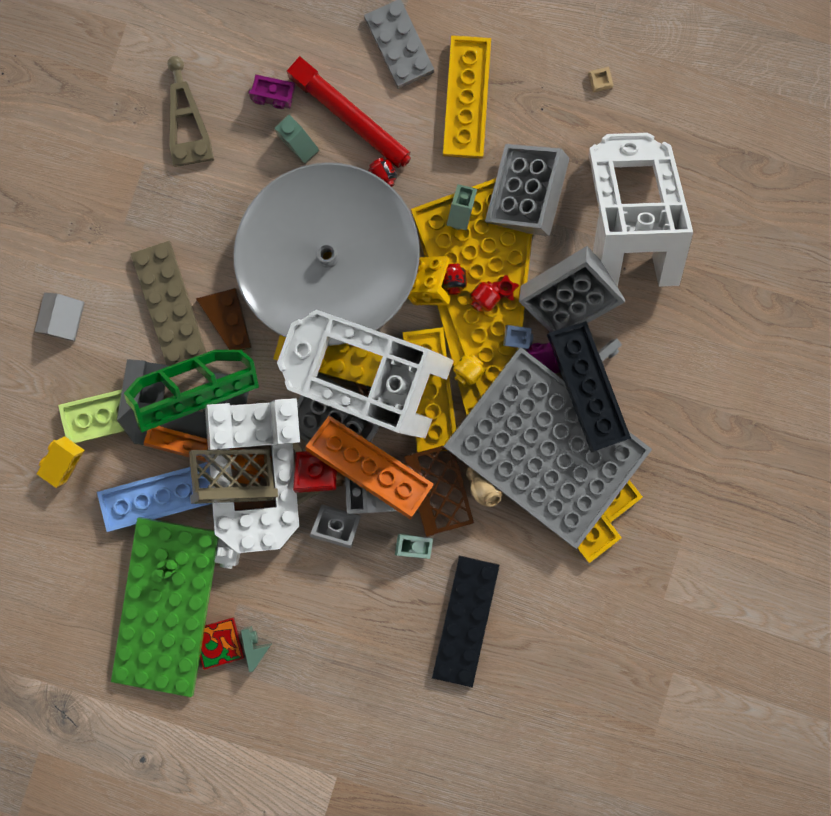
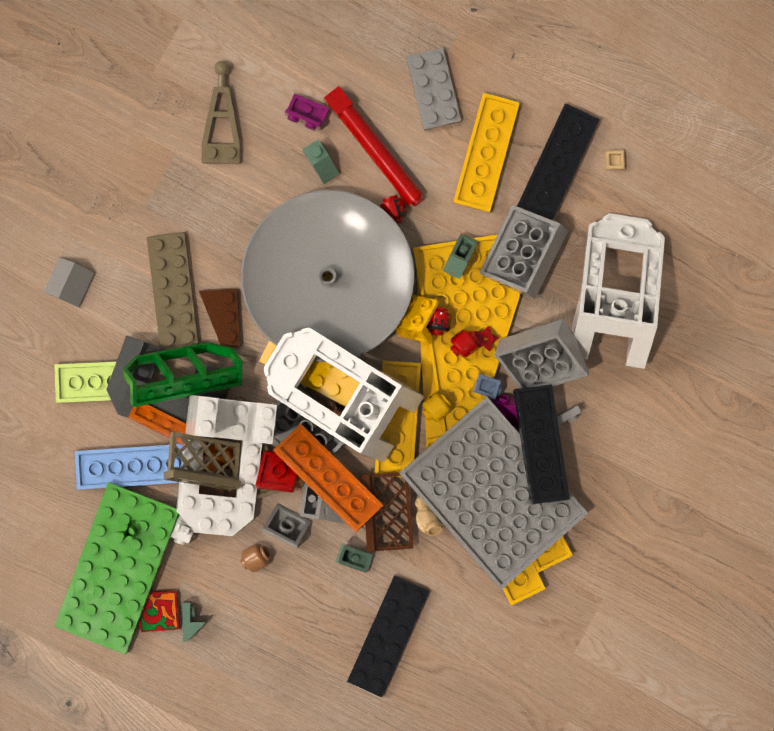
camera: 10 degrees right, 0 degrees up
(59, 461) = (47, 416): yellow brick -> none
(309, 566) = (255, 558): none -> medium nougat head
(543, 90) = (558, 162): none -> black plate

